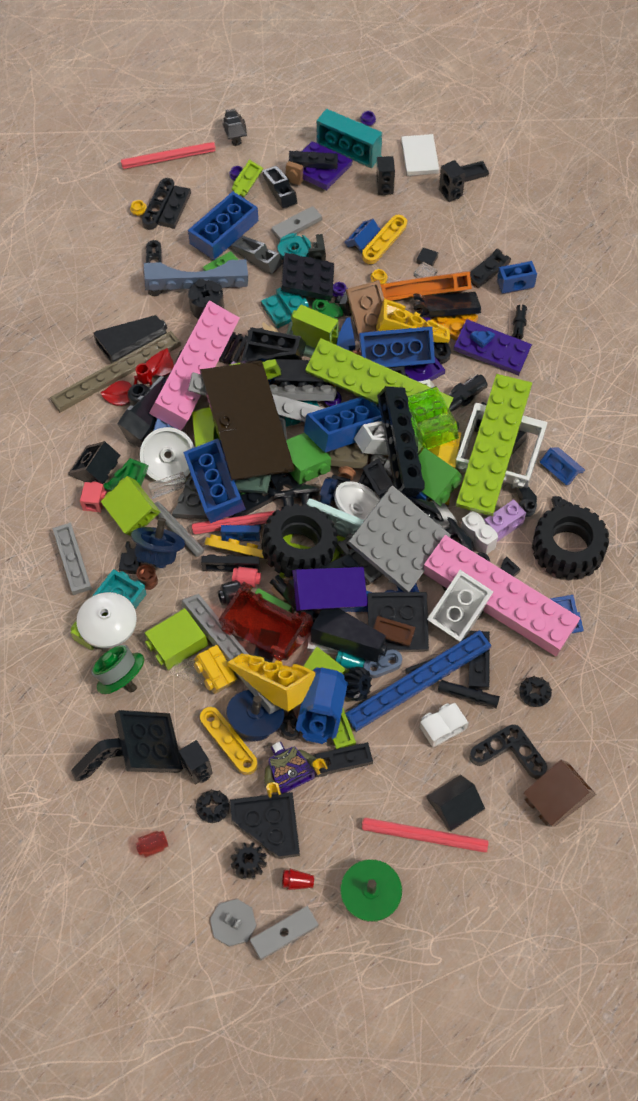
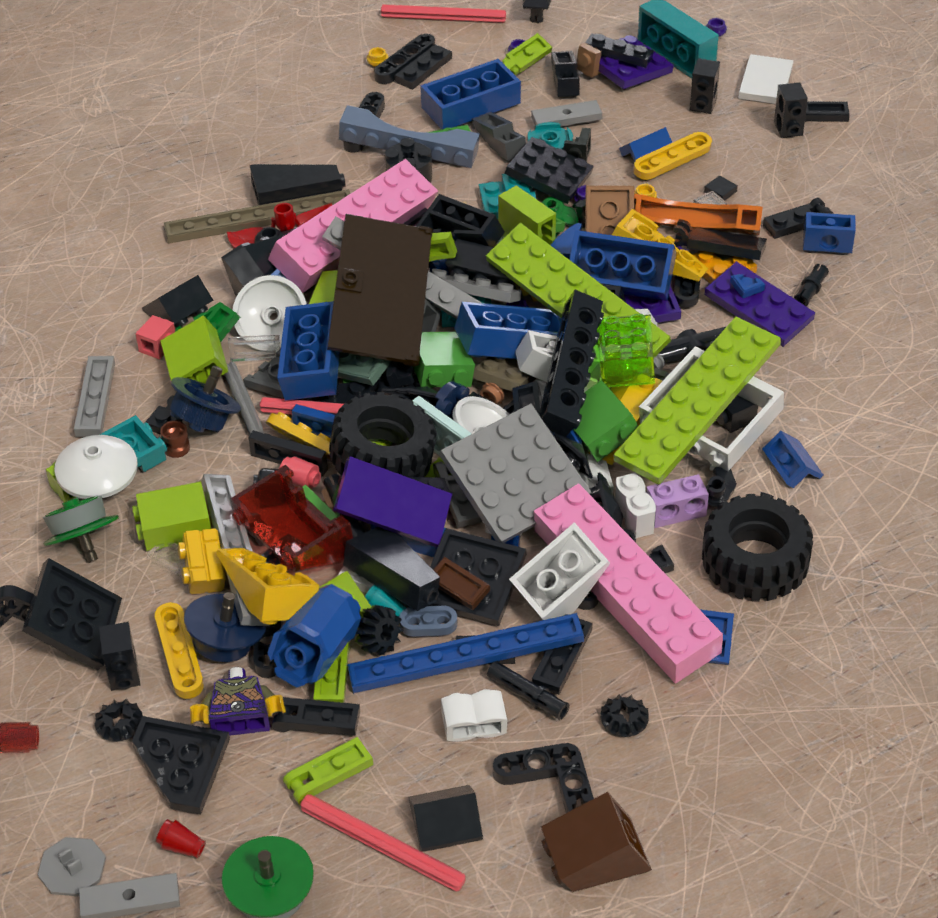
camera: 20 degrees right, 15 degrees down
(249, 853) = (128, 795): black gear -> none
(368, 795) = (328, 769): none -> lime plate

